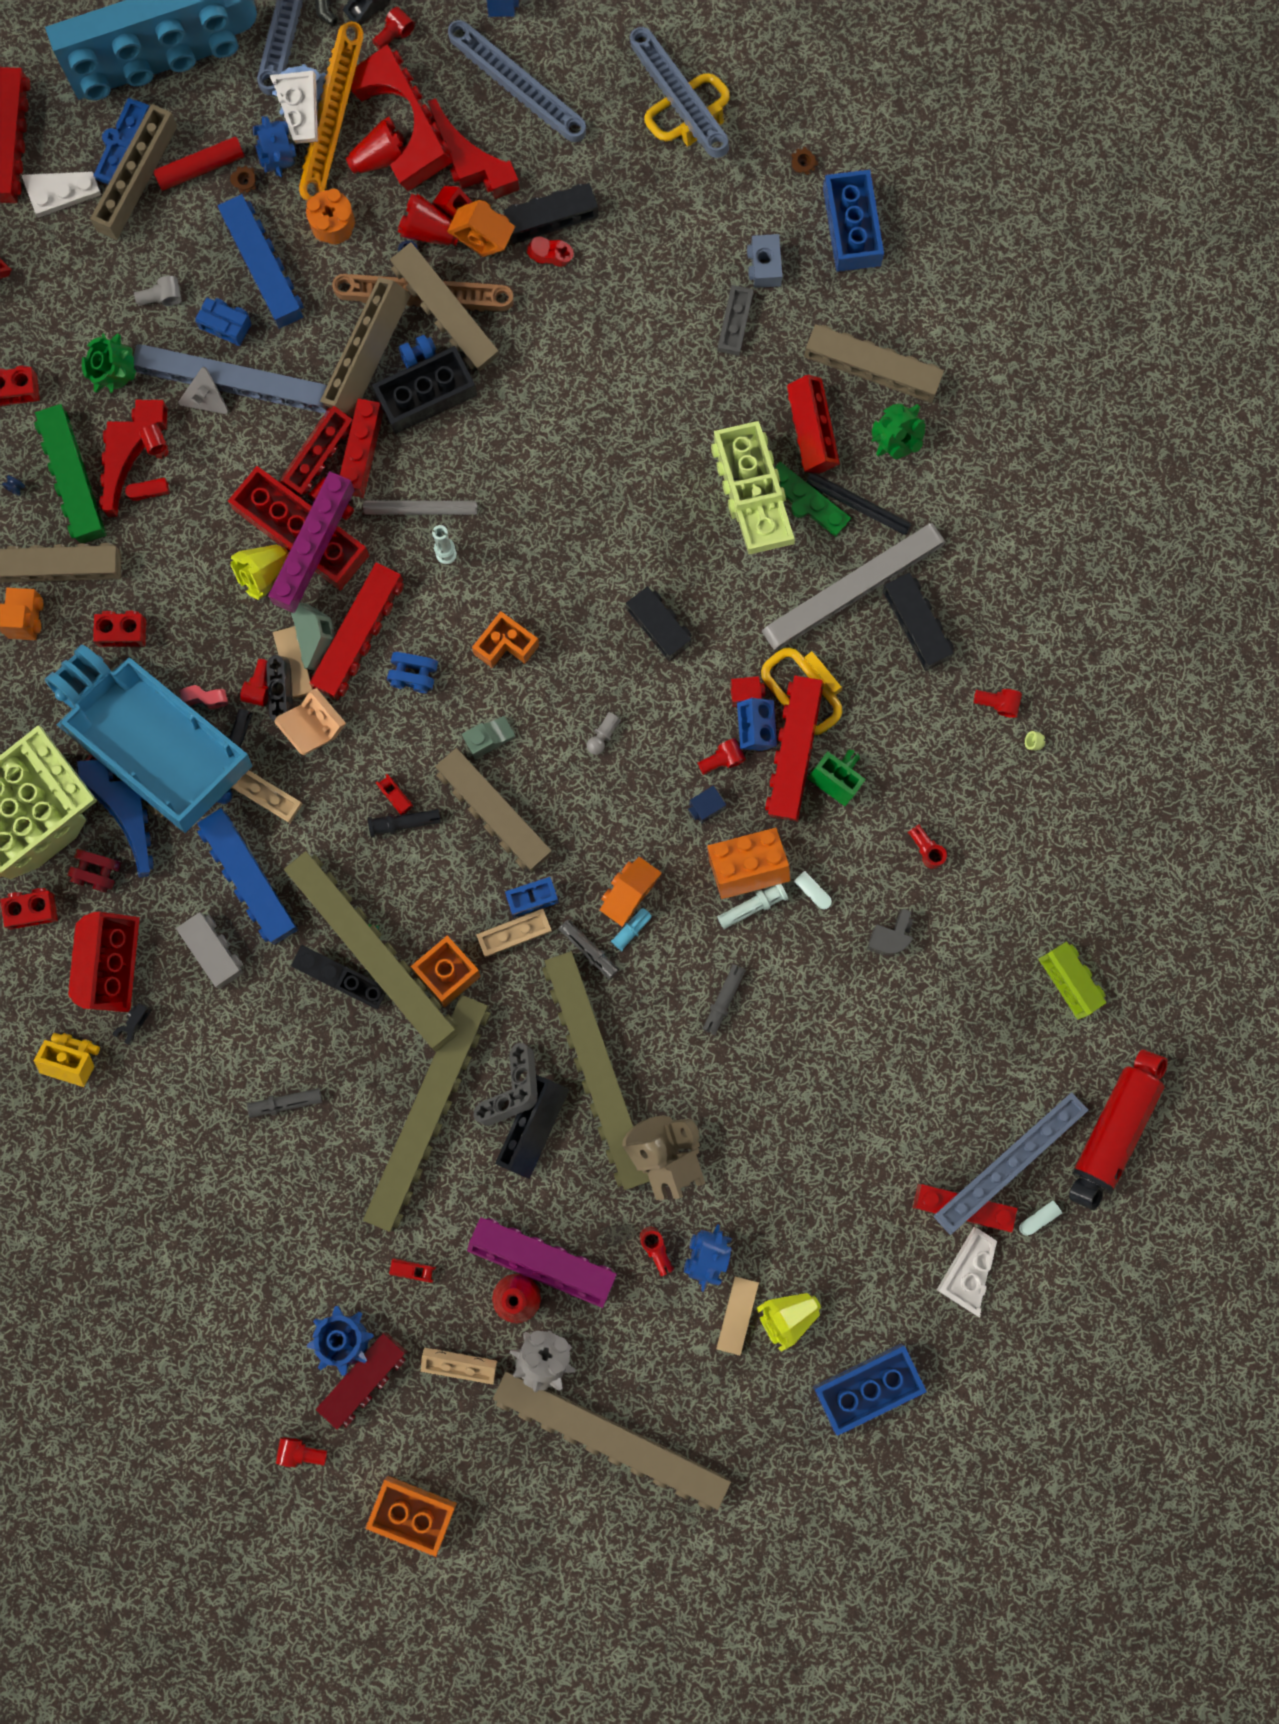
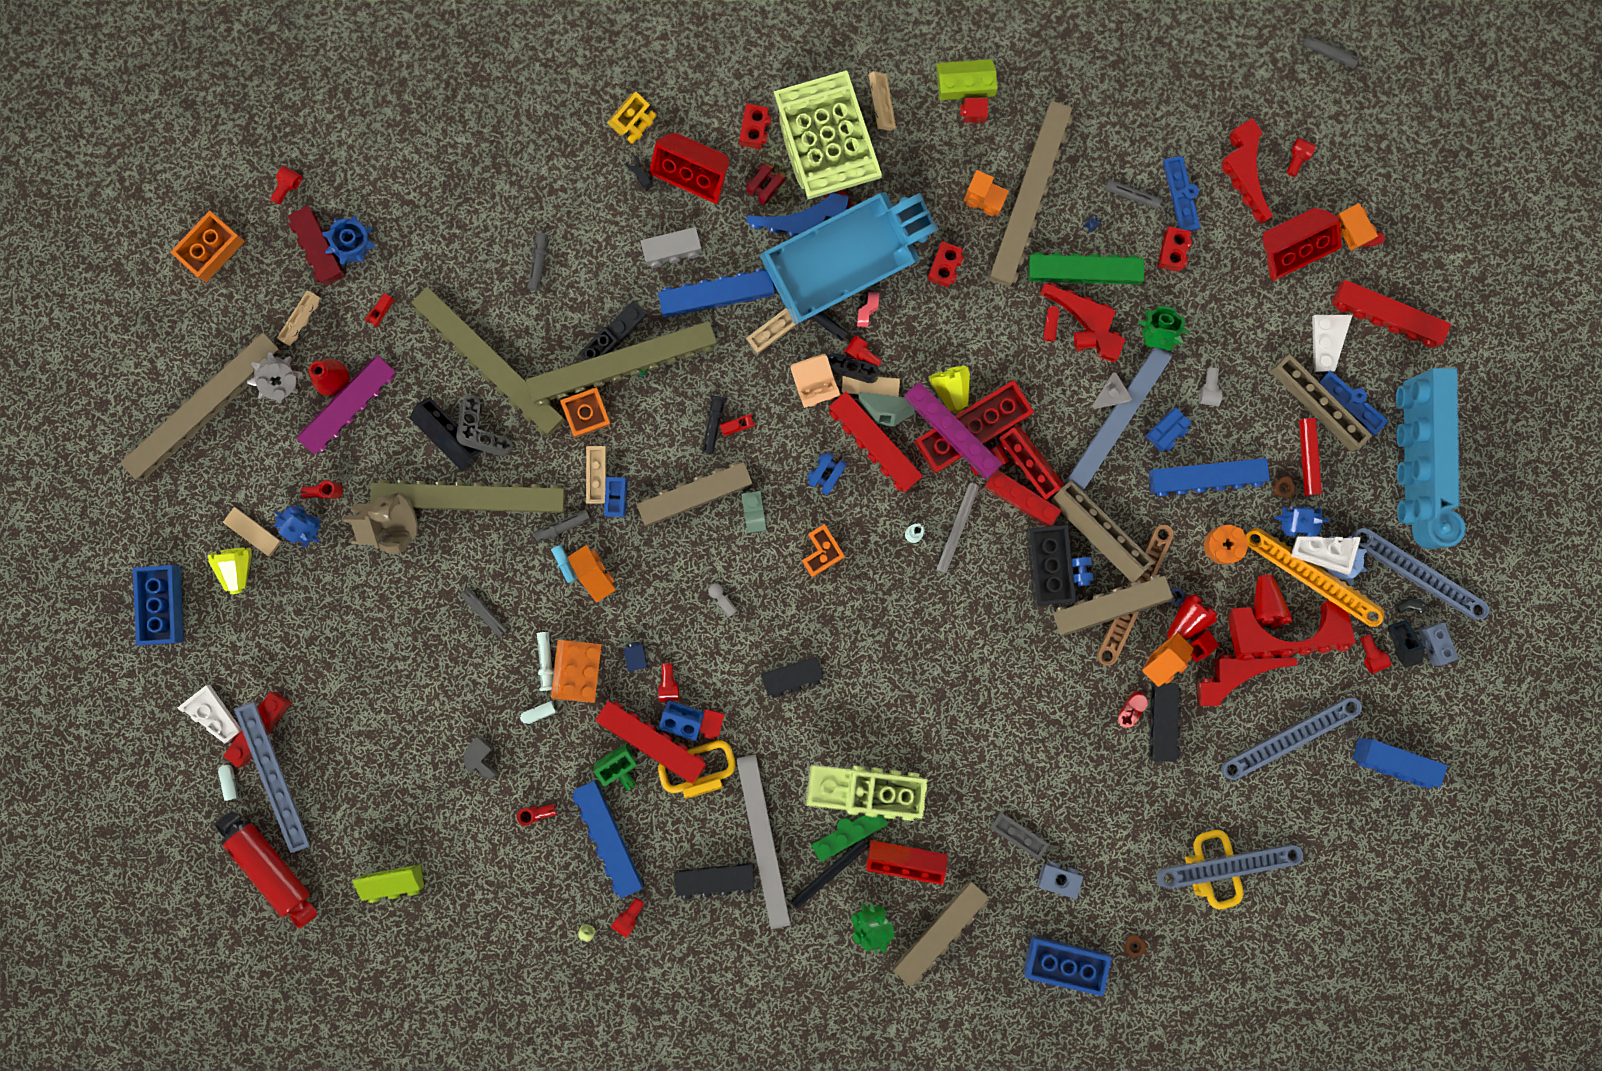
camera: 110 degrees right, 5 degrees up
(921, 756) = (608, 839): none -> blue brick

